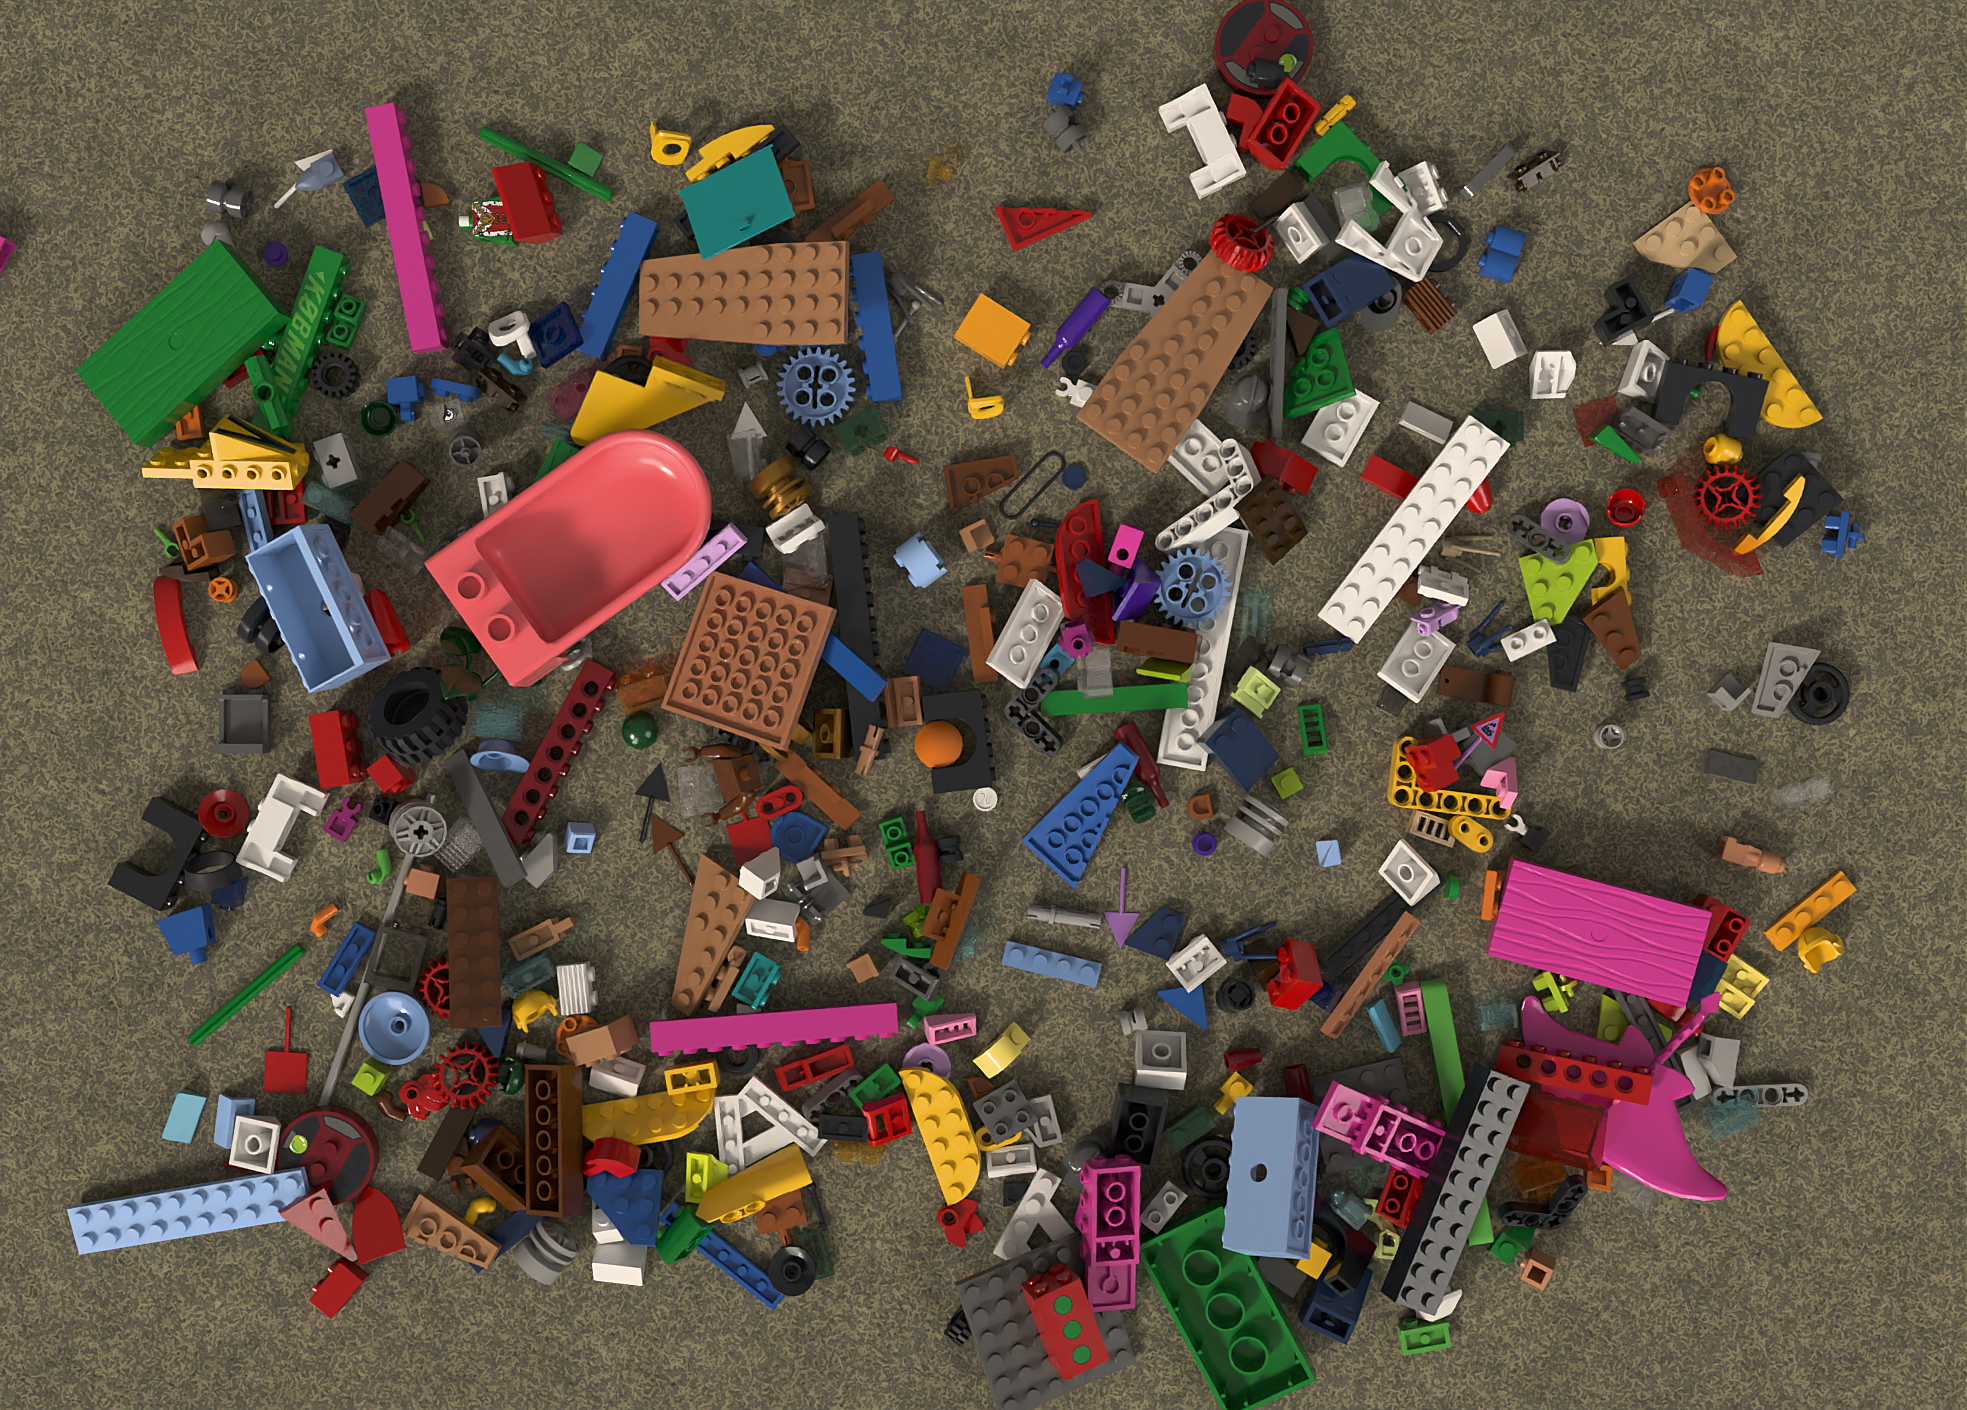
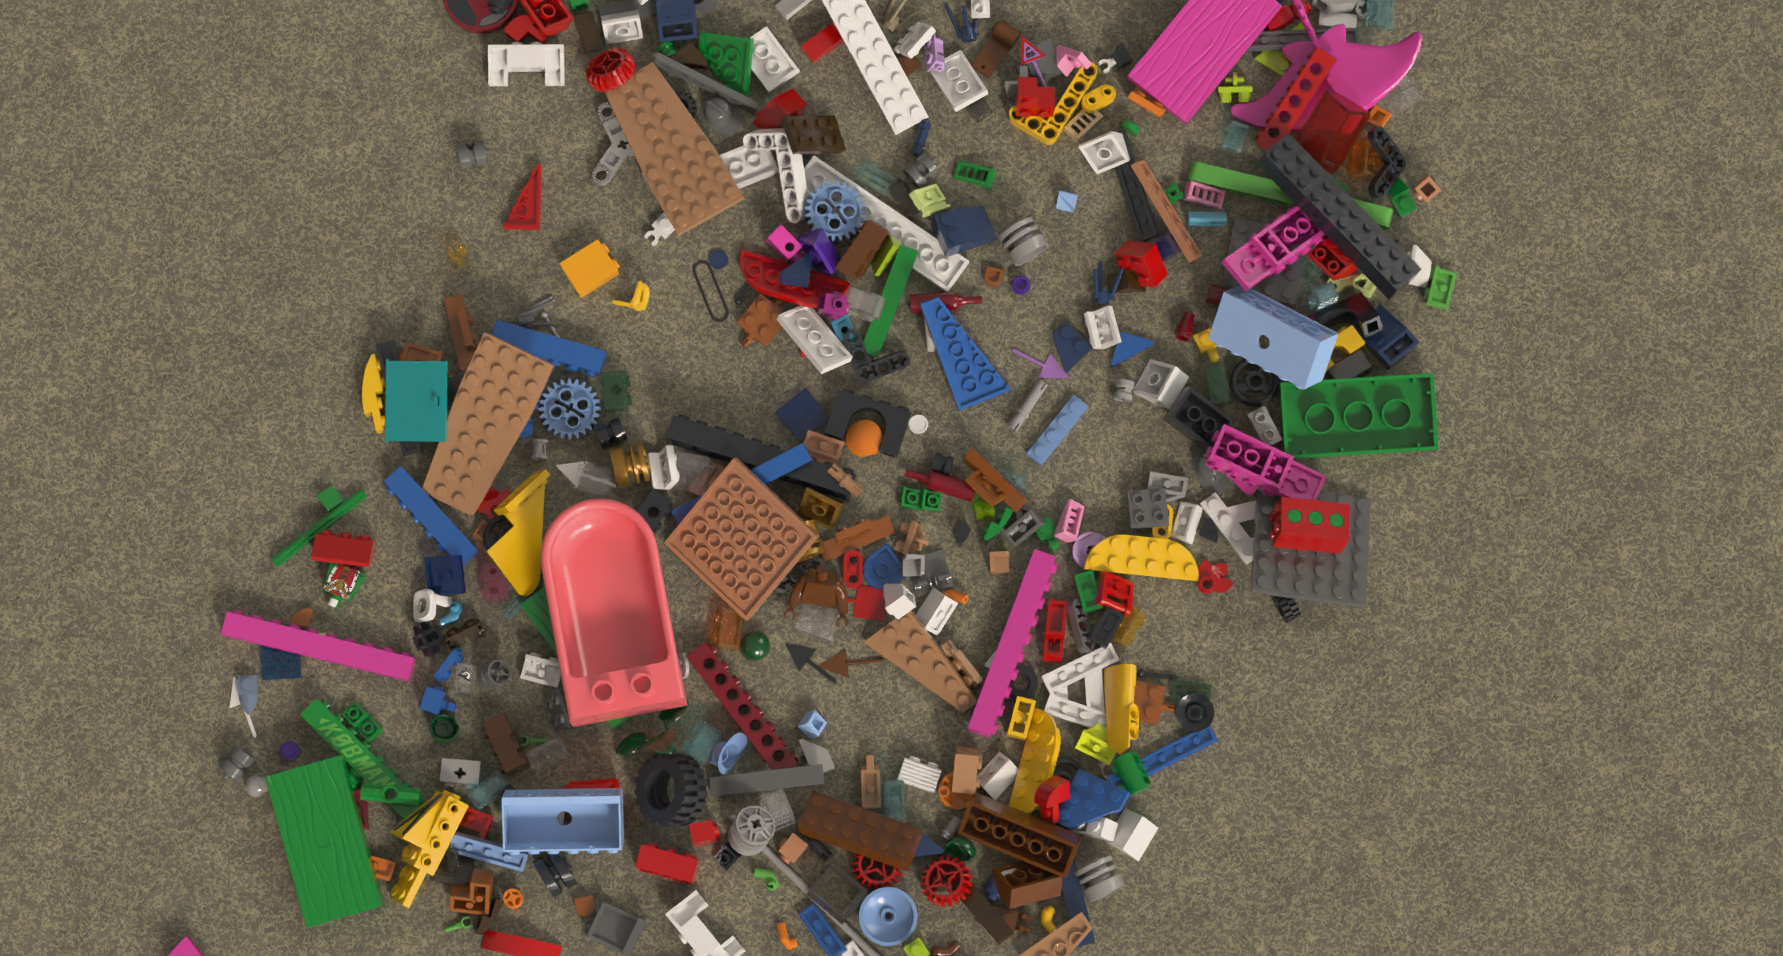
camera: 65 degrees left, 10 degrees down
(323, 368) = (386, 746): black tyre -> none
(342, 822) = (722, 890): magenta plate -> none
(425, 1099) = (950, 921): red plate -> none
(531, 1006) = (917, 812): yellow cap -> none
(662, 138) = (345, 434): yellow piece -> none
(705, 561) = (653, 517): lavender tile -> none
(756, 980) = (973, 642): teal bracket -> none
(892, 453) = (641, 377): red hand -> none
(920, 560) = (727, 389): light blue brick -> none
(975, 479) = (688, 326): reddish brown wing -> none
(976, 536) = (728, 345): medium nougat panel -> none
(979, 629) = (798, 372): dark orange bracket -> none
(980, 1086) = (1122, 520): dark orange tile -> none
(1002, 1050) = (1103, 492): light yellow brick -> none
(1065, 91) = (446, 143): blue brick -> none
(1073, 363) = (638, 223): black tile -> none
(1077, 323) = (612, 207): dark purple piece -> none
(1138, 802) = (970, 316): clear green gear -> none
(1235, 996) = (1138, 310): black wheel -> none
(1276, 215) = (603, 37): black piece -> none
(1286, 783) = (1004, 209): lime plate -> none

